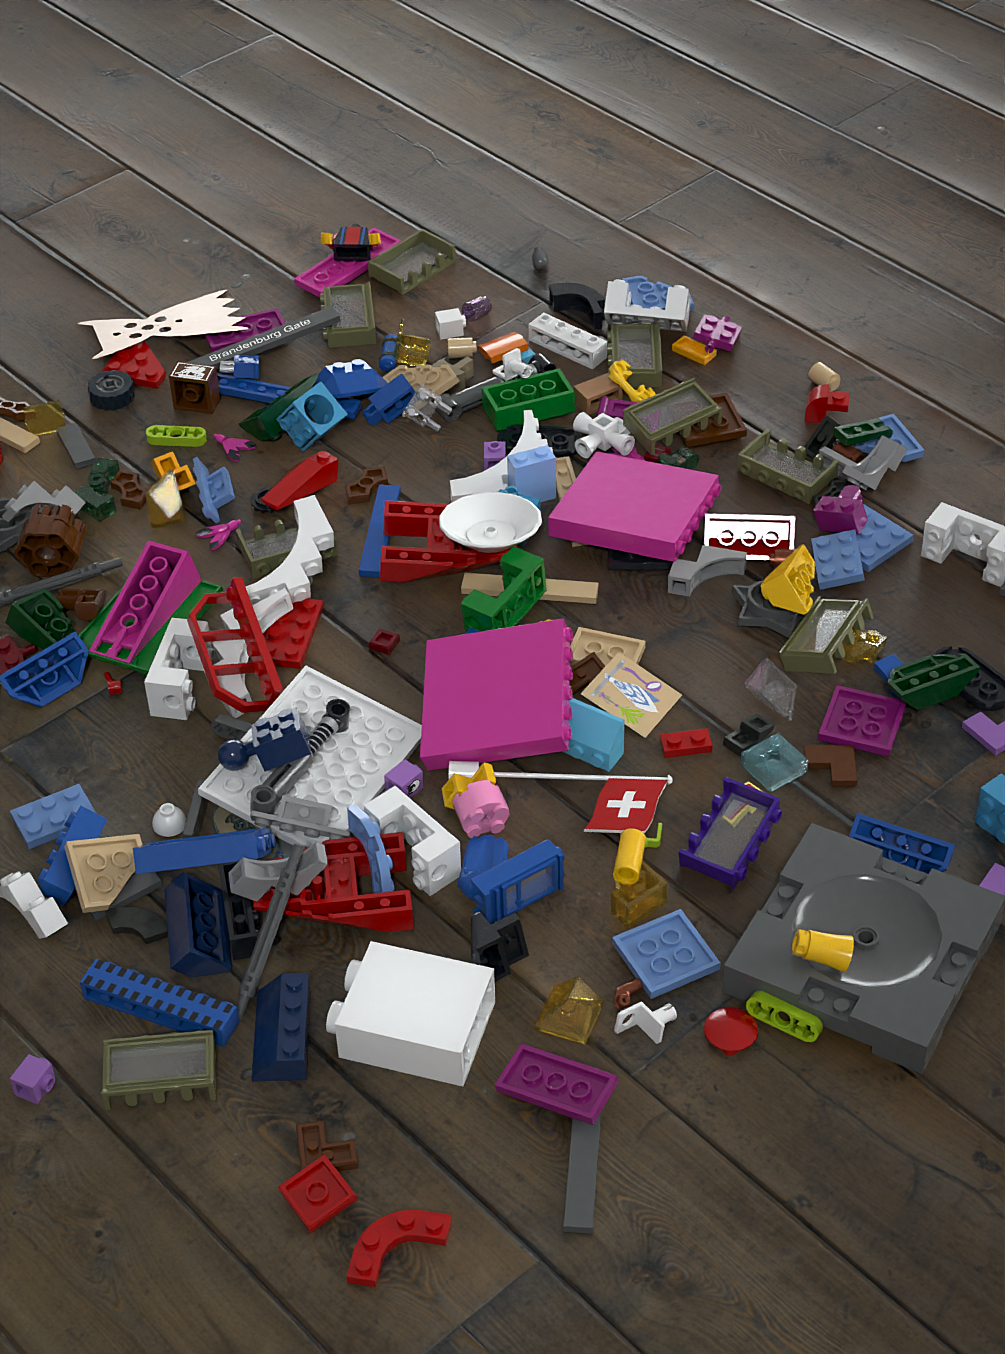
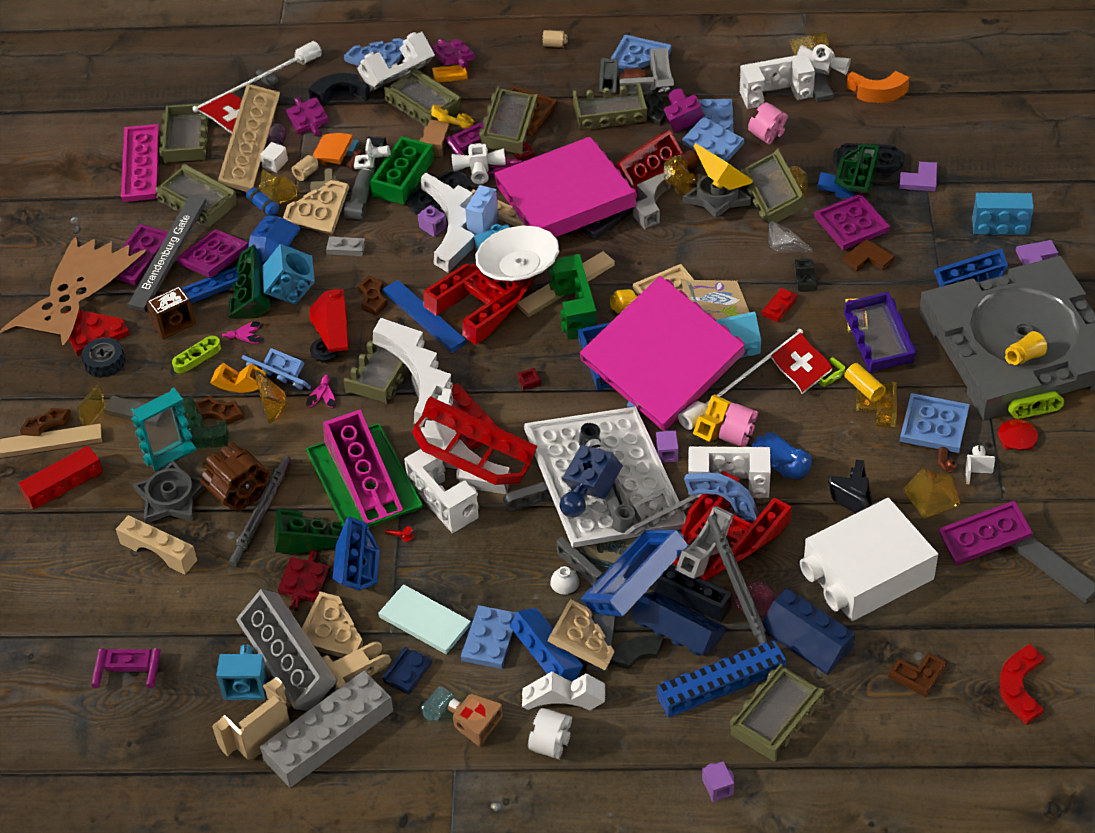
camera: 45 degrees left, 5 degrees up
(30, 762) = (424, 619): none -> light aqua tile
(35, 494) = (191, 454): light grey arch -> none
(46, 457) = (163, 430): none -> teal window
(84, 601) = (309, 495): reddish brown brick -> none
(243, 366) = (179, 275): blue piece -> none
(284, 960) = (761, 596): none -> clear pink dish
(291, 365) = (212, 253): none -> magenta plate
(317, 1193) = (952, 695): red plate -> none
(352, 243) = (136, 144): torso -> none
(389, 401) = (316, 229): blue brick -> none
(403, 432) = (345, 246): none -> light grey plate
(422, 405) = (345, 219): clear piece -> none
(470, 270) = (226, 106): none -> flag
(477, 279) = (248, 138): none -> tan plate
(519, 881) = (818, 448): blue door -> none
(524, 308) = (307, 116): none -> magenta plate
(568, 340) = (367, 117): white brick -> none
(682, 458) = (543, 144): clear green leg -> none
(752, 561) = (678, 175): none -> clear yellow slope
(774, 762) = (841, 278): clear light blue brick -> none
(822, 400) = (578, 52): red brick -> none
(862, 431) = (630, 56): dark green plate -> none
(907, 575) = (768, 123): none -> bright pink brick

